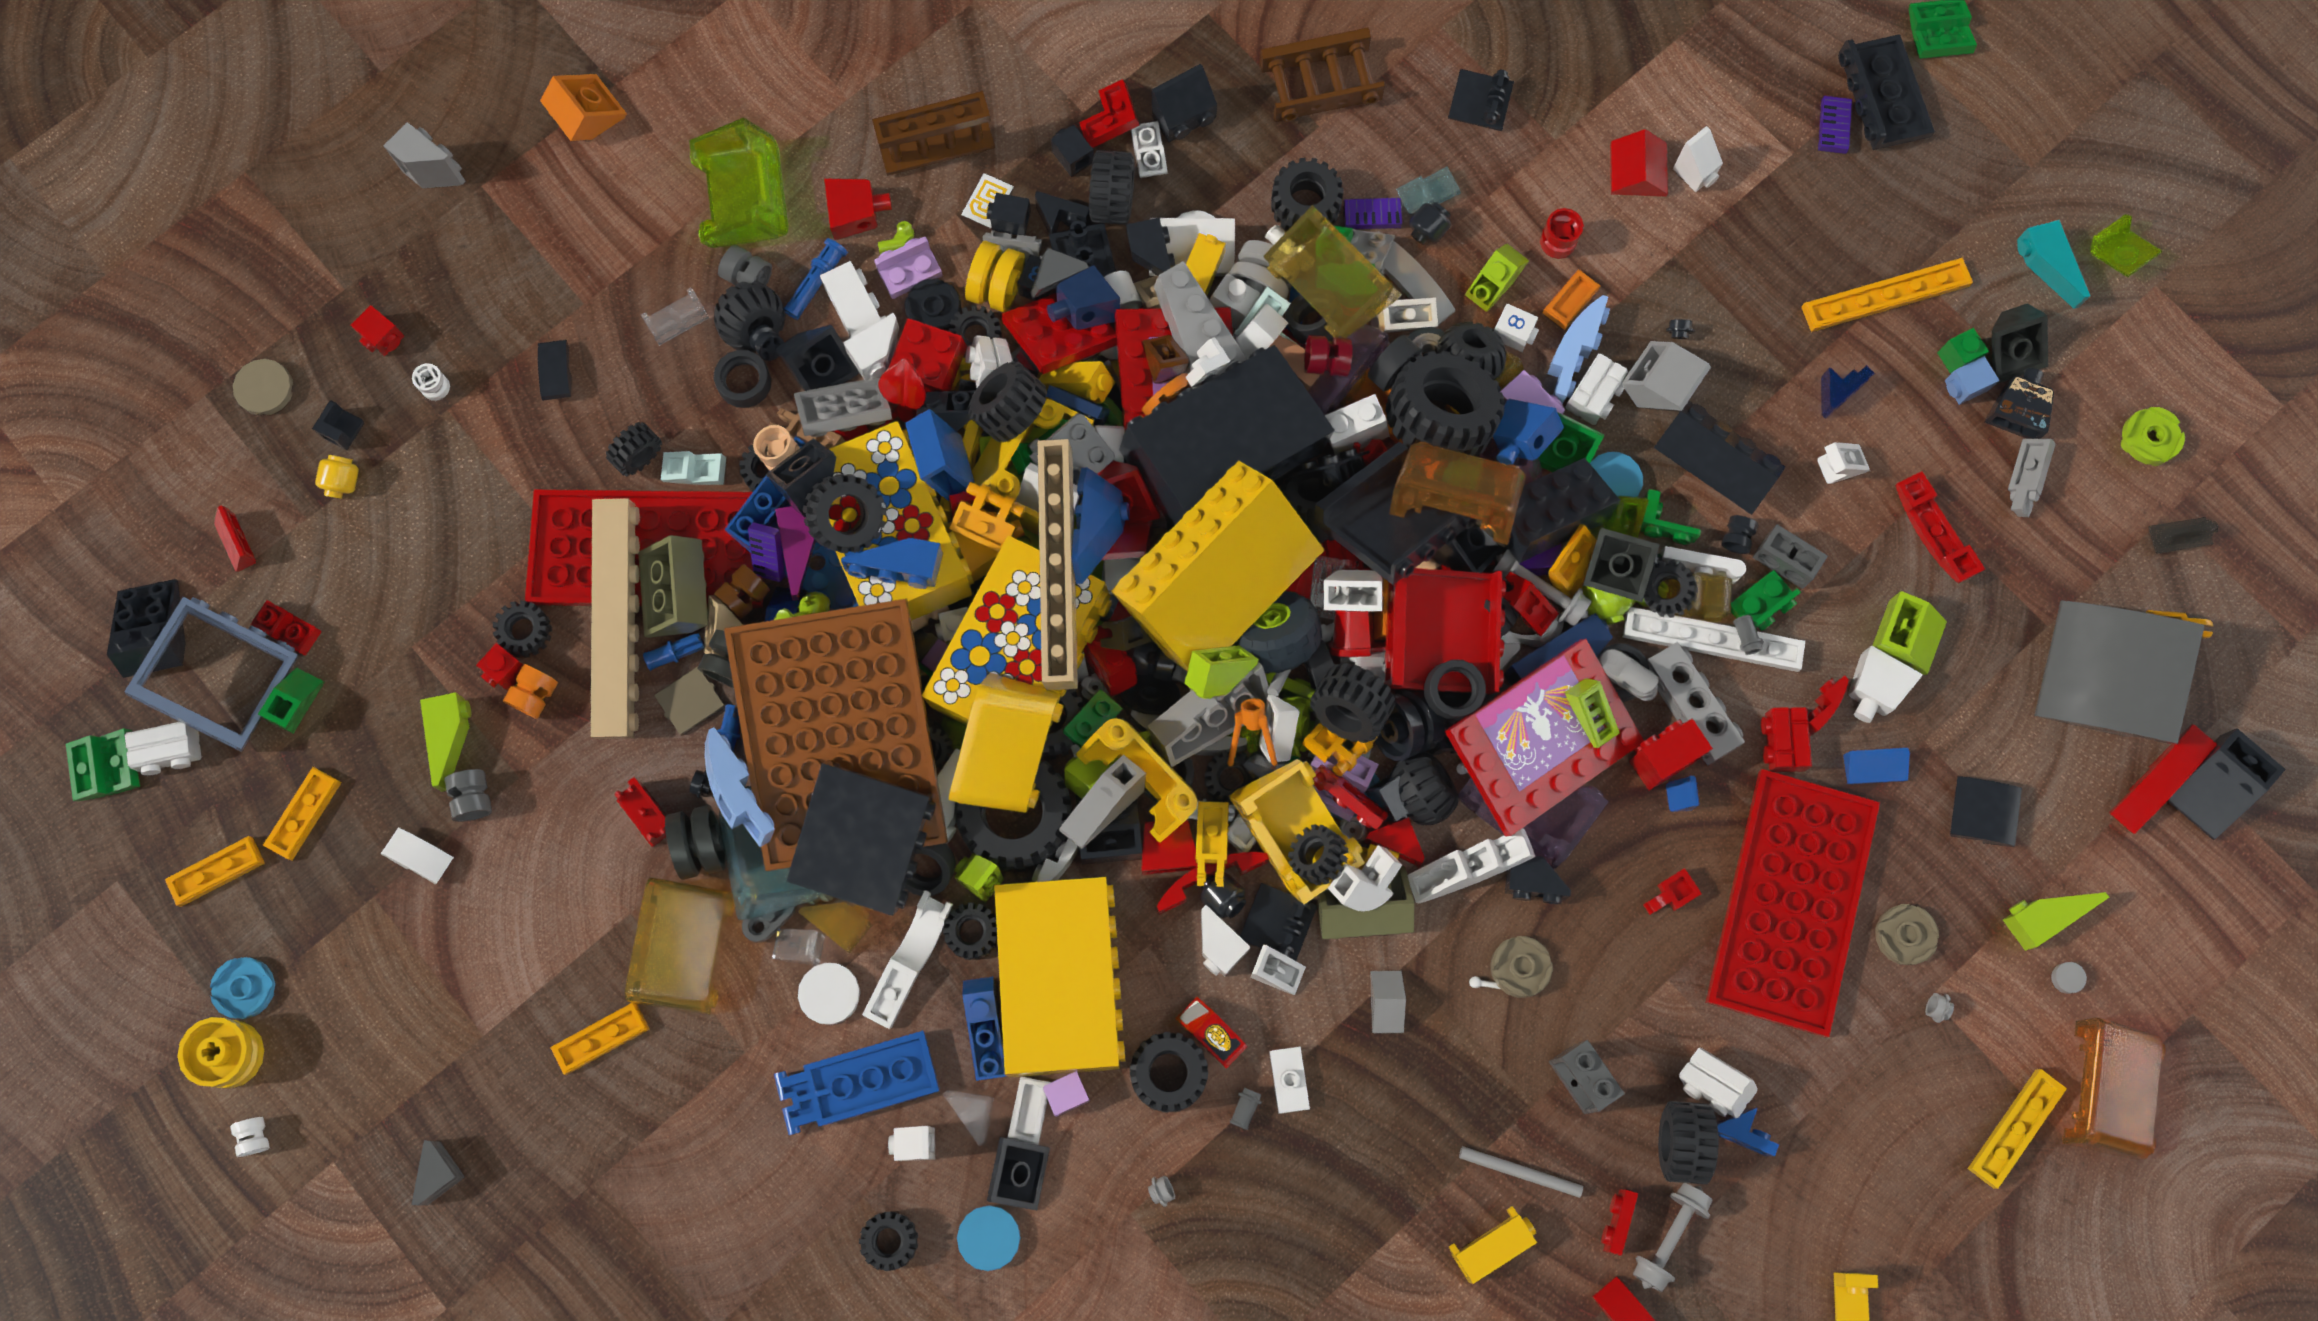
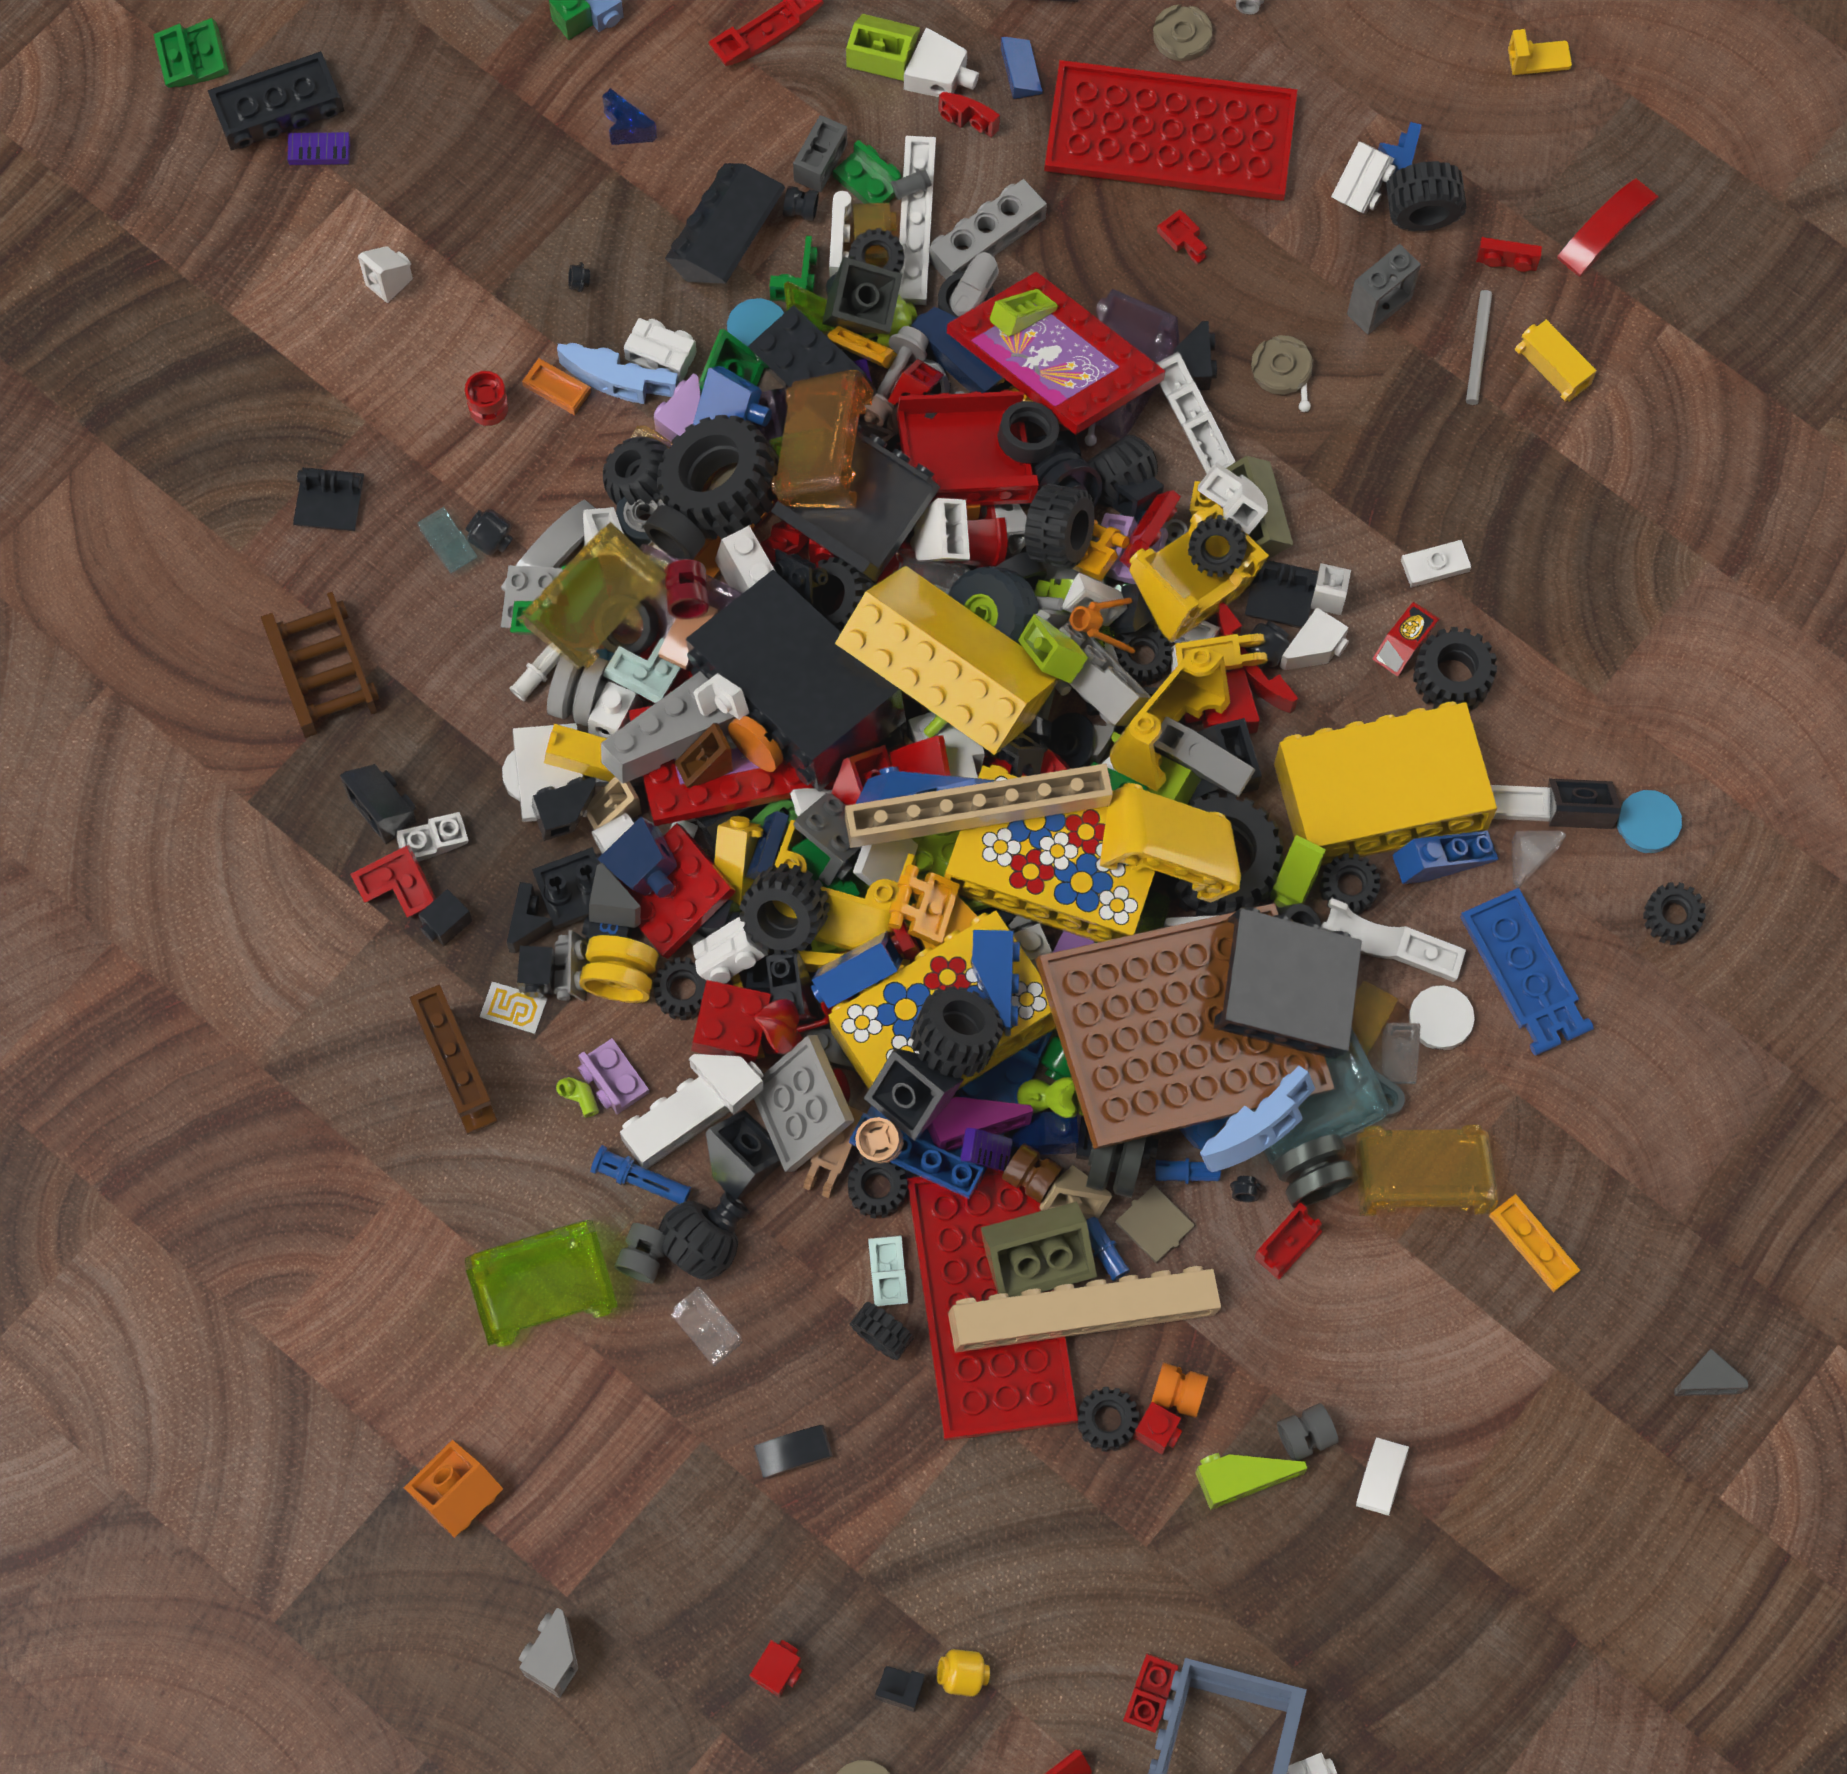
camera: 100 degrees left, 5 degrees down
(214, 871) = (1441, 1704): light orange tile -> none
(220, 1053) = (1635, 1654): yellow wheel -> none
(242, 988) = (1560, 1639): dark azure tile -> none
(250, 1136) = (1715, 1584): white wheel -> none
(291, 700) = (1237, 1652): green slope -> none
(302, 813) = (1358, 1621): light orange tile -> none
(433, 388) = (830, 1595): white wheel -> none
(735, 359) = (768, 1209): black tyre -> none
(853, 206) = (544, 1148): red torso -> none
(912, 1143) = (1577, 899): white slope -> none
(933, 303) = (654, 1043): black tile -> none
(1053, 871) = (1277, 812): white slope -> none
(1066, 1094) = (1500, 762): lavender panel -> none
(1111, 187) = (495, 858): black tyre -> none
(1161, 1191) = (1569, 665): light grey plate -> none
(1245, 1108) = (1472, 598): dark grey pin -> none
(1261, 331) = (659, 667): white slope -> none
(1306, 176) = (469, 636): black tyre -> none
(1373, 213) = (481, 594): dark purple tile -> none
(1387, 1001) = (1339, 481): light grey slope -> none
(1400, 839) = (1181, 480): red slope -> none
(1496, 276) = (543, 458): lime slope -> none
(1516, 327) = (600, 434): white brick -> none
(1639, 165) = (391, 335): red slope -> none
(1665, 376) = (643, 279): light grey slope -> none
(1674, 751) = (1048, 243): red brick -> none
(1682, 794) = (1082, 234): blue slope -> none
(1692, 1201) = (1550, 221): light grey piece -> none
(1787, 739) = (1010, 145): red brick -> none
(1842, 462) = (707, 116): white slope -> none
(1887, 294) = (511, 88): light orange tile -> none

